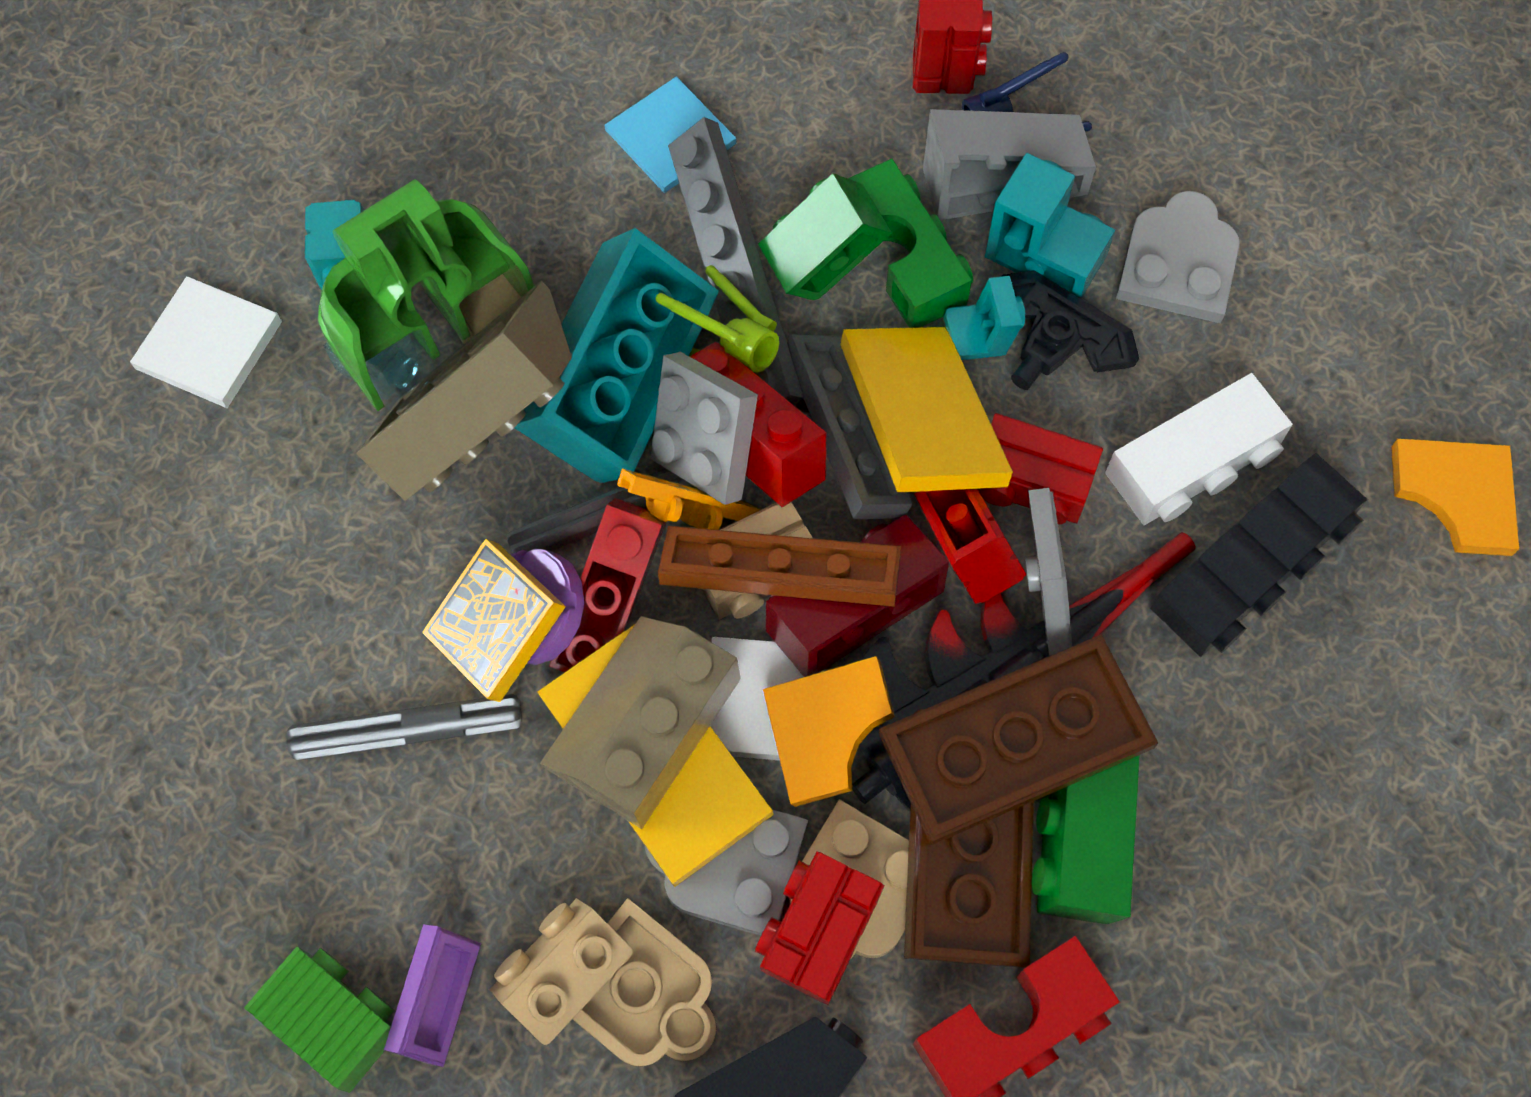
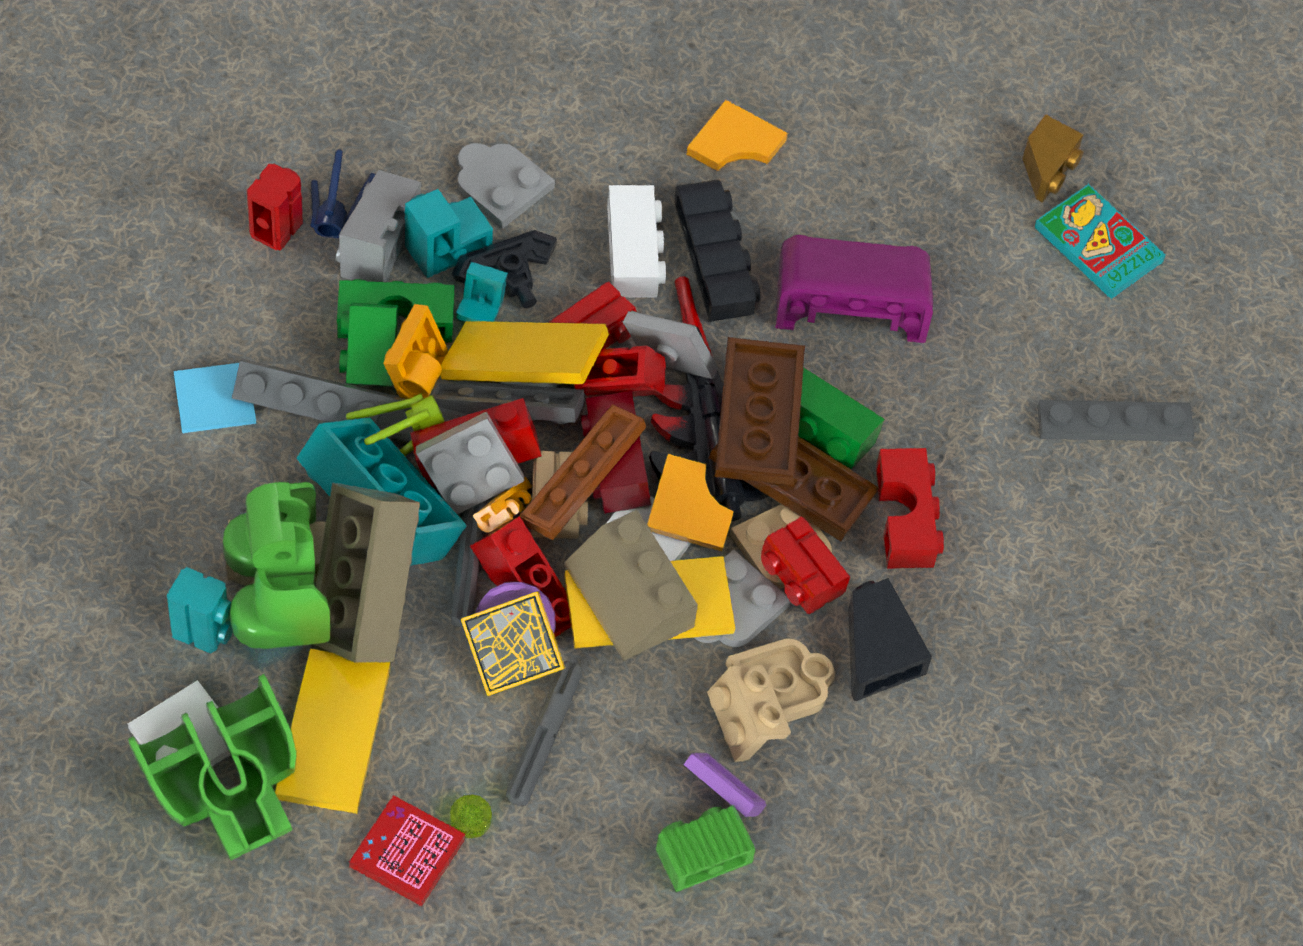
camera: 70 degrees left, 10 degrees down
(135, 388) = (262, 753): none -> bright green piece
(163, 655) = (407, 850): none -> red tile
(244, 702) = (471, 815): none -> clear neon green tile
(279, 491) = (334, 731): none -> yellow tile
(835, 289) = (416, 354): none -> light orange plate
(1335, 763) = (855, 282): none -> magenta windscreen

